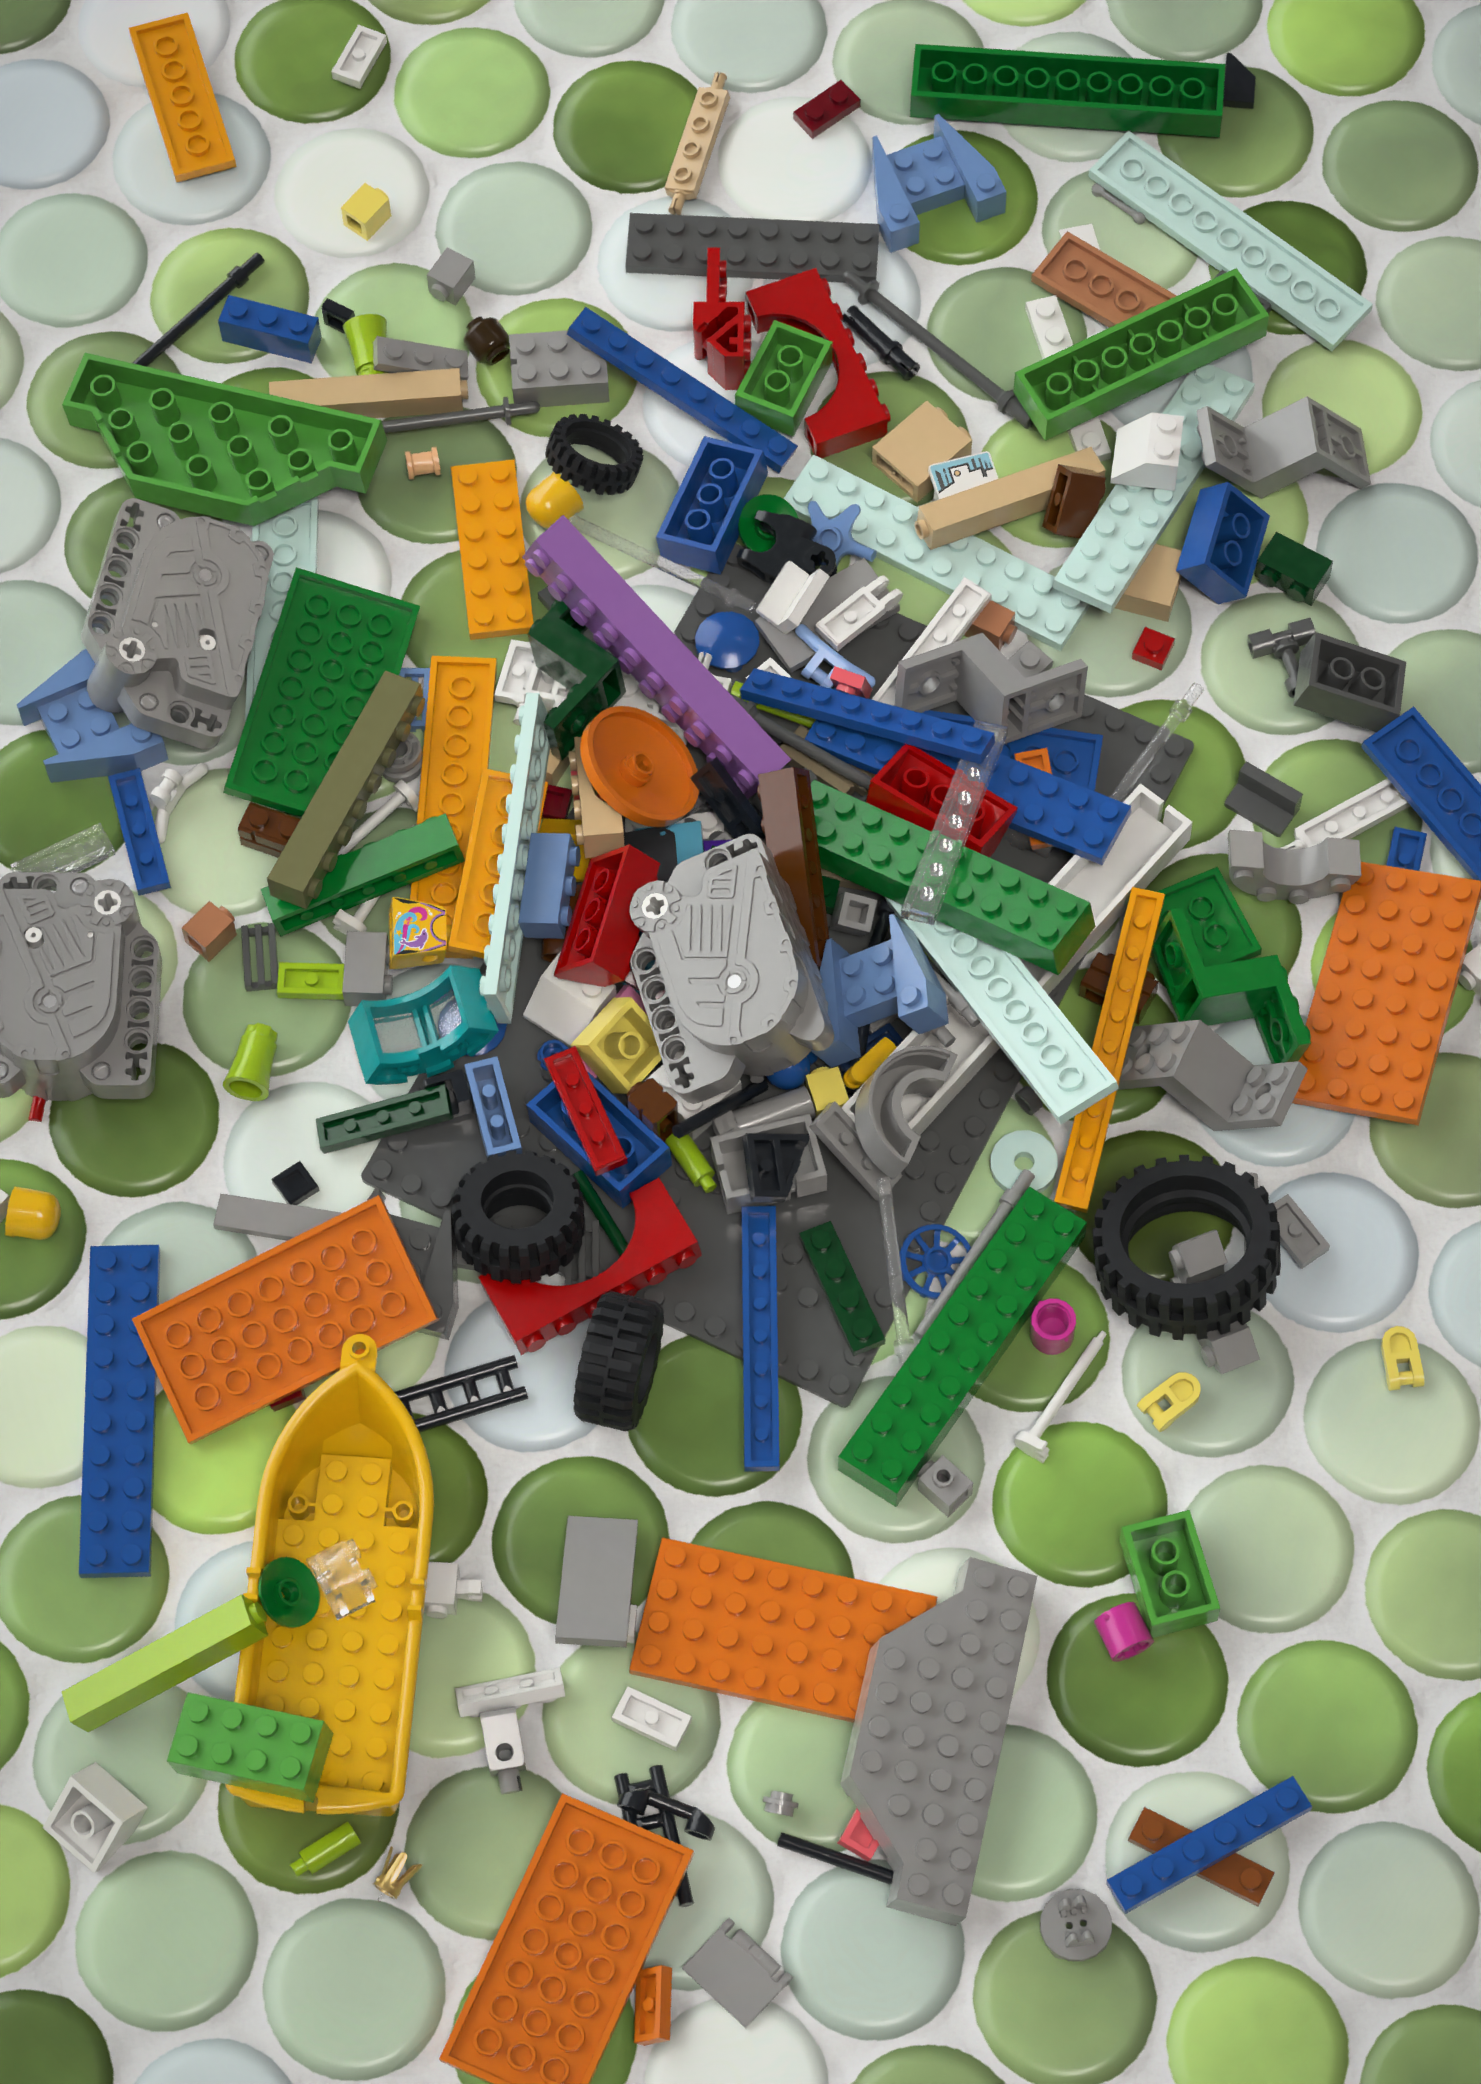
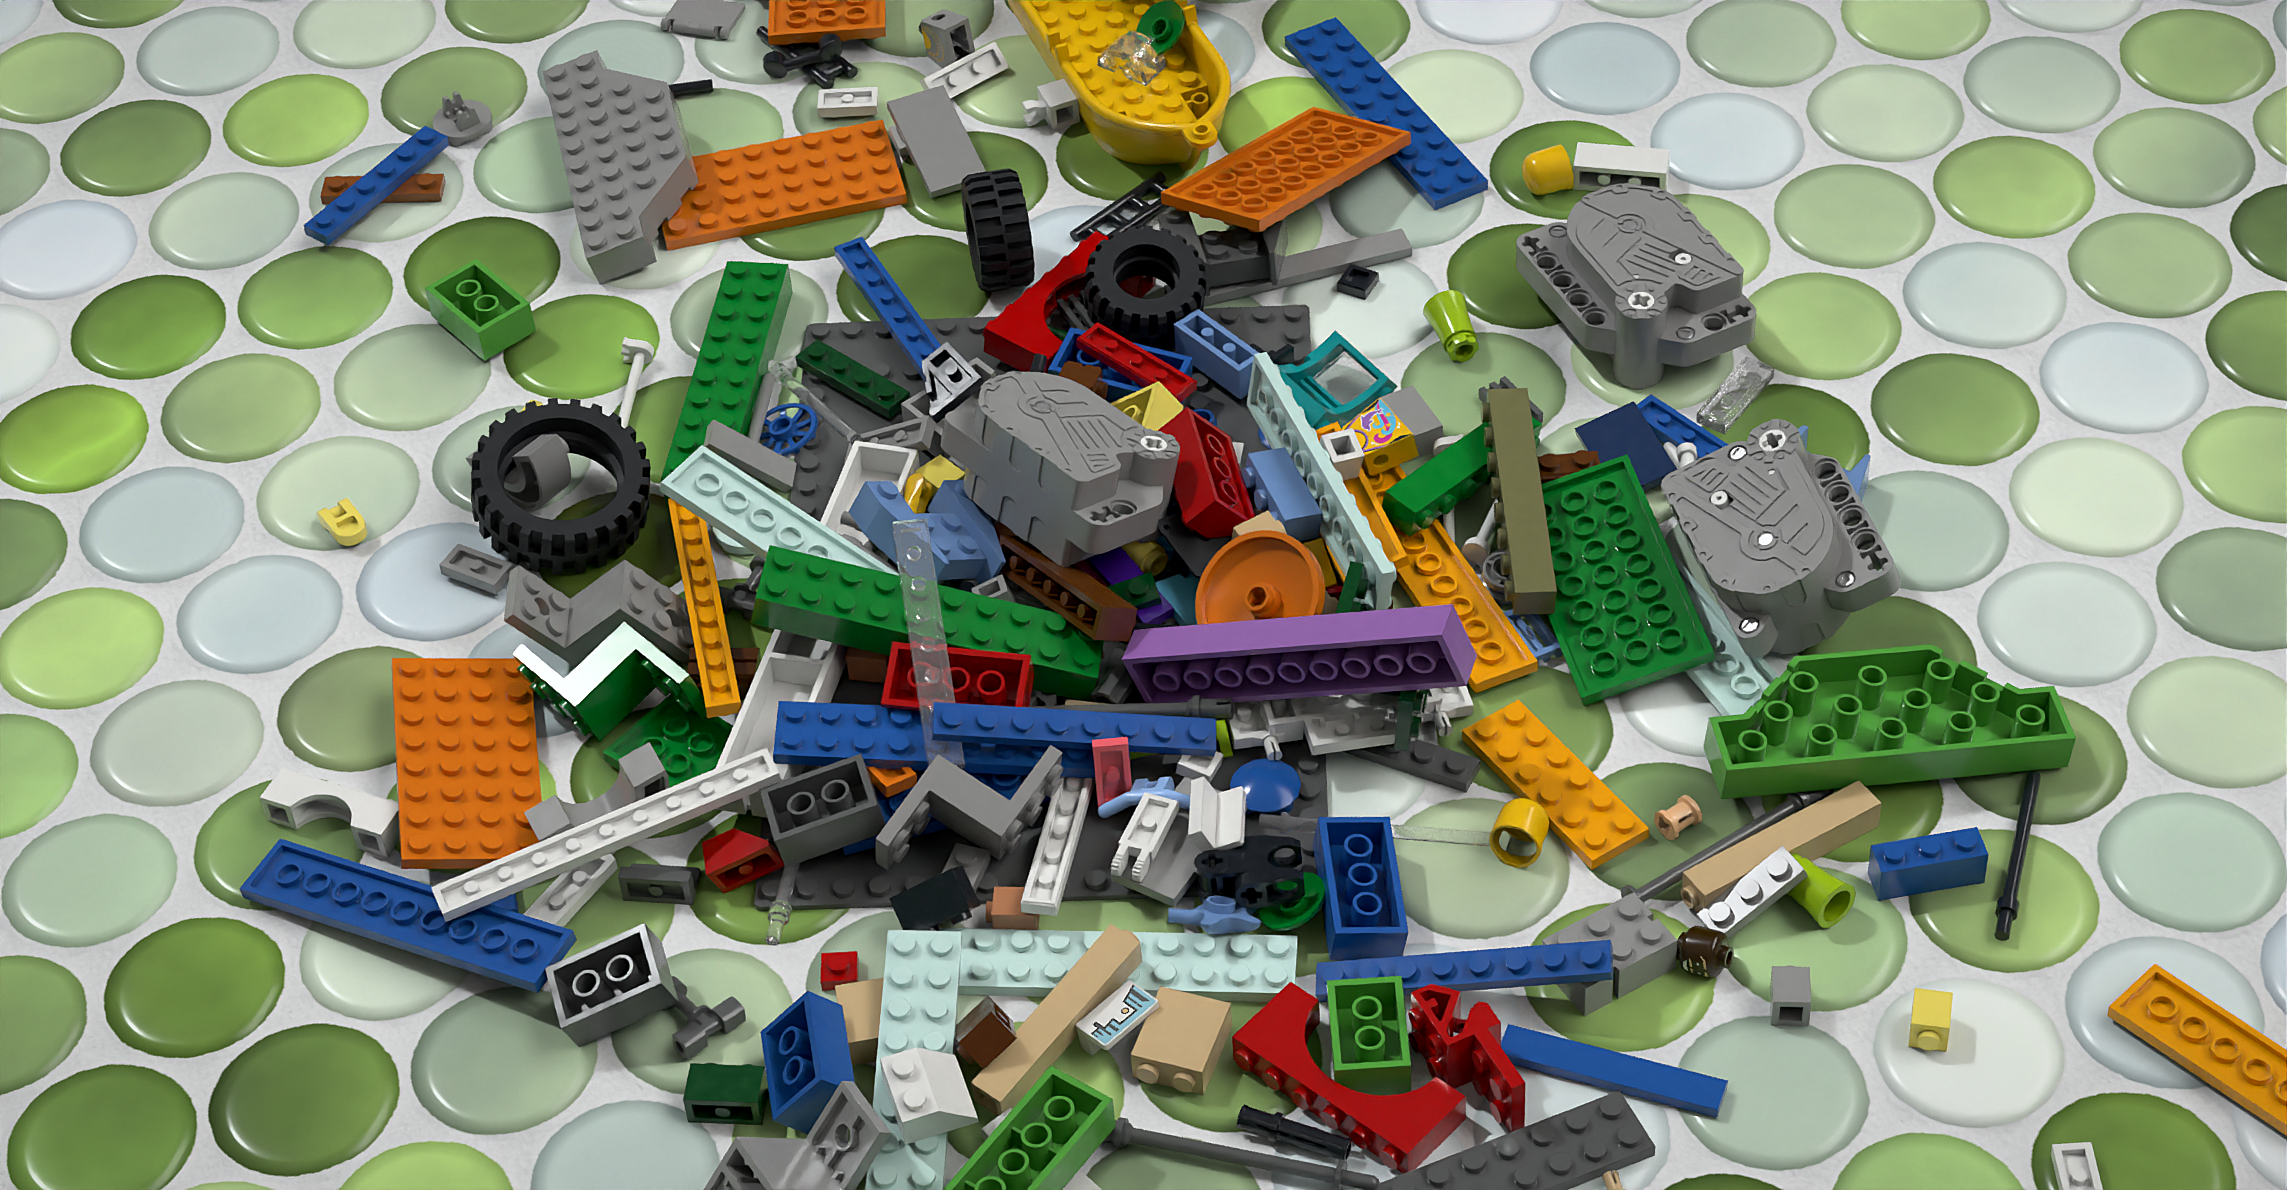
camera: 155 degrees right, 20 degrees down
(204, 839) = (1628, 433): none -> dark blue tile
(209, 930) = (1565, 395): nougat brick -> none
(310, 981) = (1455, 399): lime plate -> none
(336, 314) = (1870, 908): black tile -> none
(384, 1118) = (1315, 327): dark green plate -> none
(479, 873) = (1344, 452): none -> white brick
(588, 472) = (1488, 831): black tyre -> none
(618, 289) = (1614, 1070): none -> blue tile
(780, 1803) = (718, 88): light grey plate -> none
(879, 1110) = (878, 449): light grey brick -> none
(944, 1485) = (693, 299): light grey brick -> none
(990, 1212) = (750, 456): none -> light grey tile
(1052, 1326) = (657, 421): dark pink piece -> none
(1053, 638) = (936, 901): none -> black brick
(1109, 746) = (823, 810): none -> dark grey brick
(1123, 1631) = (506, 265): dark pink piece -> none
(1191, 772) = (738, 859): none -> red slope
(1301, 805) = (605, 834): none -> white plate

